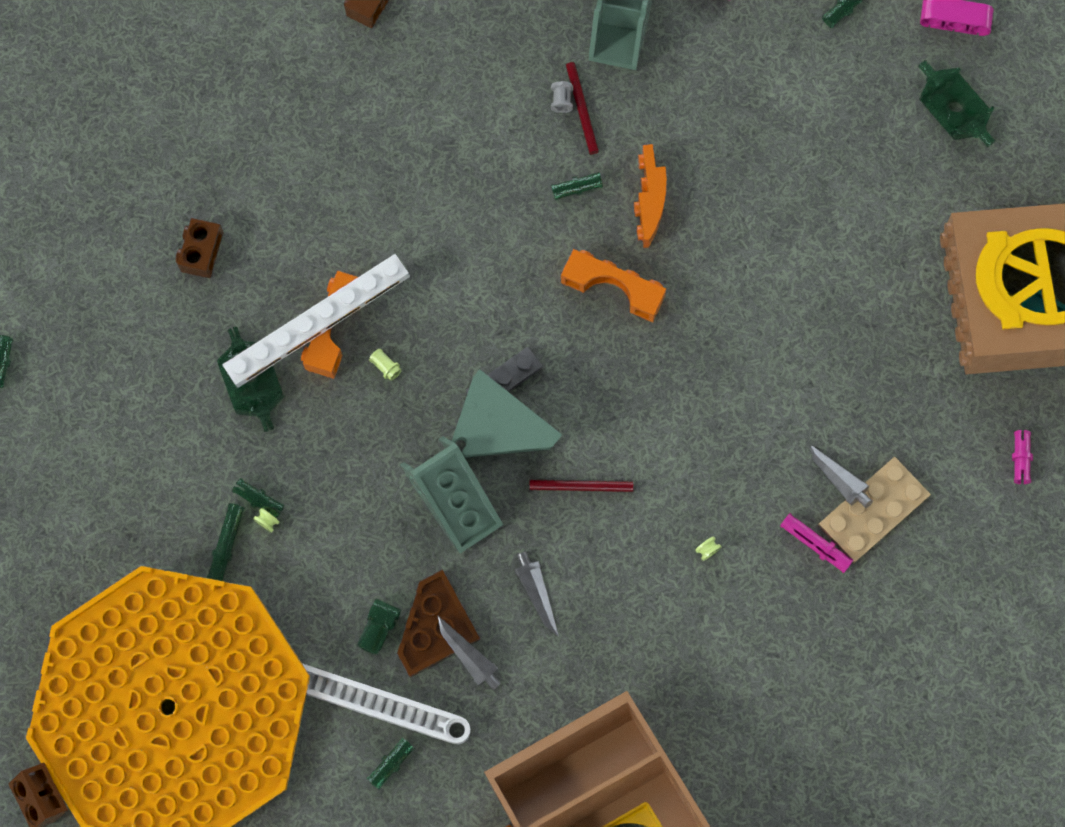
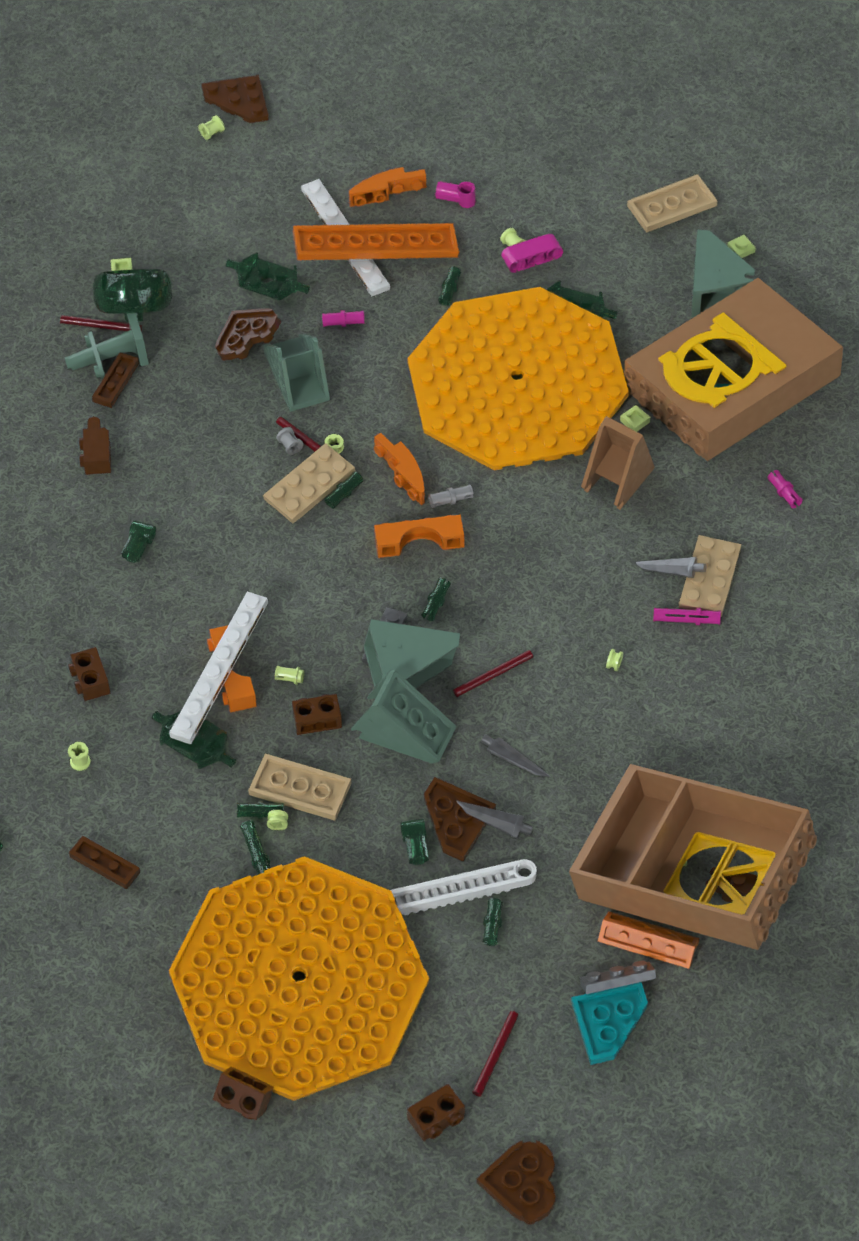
camera: 35 degrees left, 20 degrees down
(81, 463) = (104, 862): none -> reddish brown plate
(131, 340) = (79, 756): none -> yellowish green bush
(311, 497) = (300, 787): none -> tan plate
(347, 121) = (139, 537): none -> clear green piece
(376, 432) = (317, 718): none -> reddish brown brick
(548, 157) = (309, 483): none -> tan plate
(581, 367) = (436, 599): none -> clear green pin
(600, 132) = (334, 438): none -> yellowish green bush
(677, 257) = (451, 496): none -> light grey pin
(849, 216) = (553, 411): none -> light orange plate
(865, 328) = (619, 457): none -> medium nougat ladder
(925, 279) = (635, 418): none -> yellowish green plate

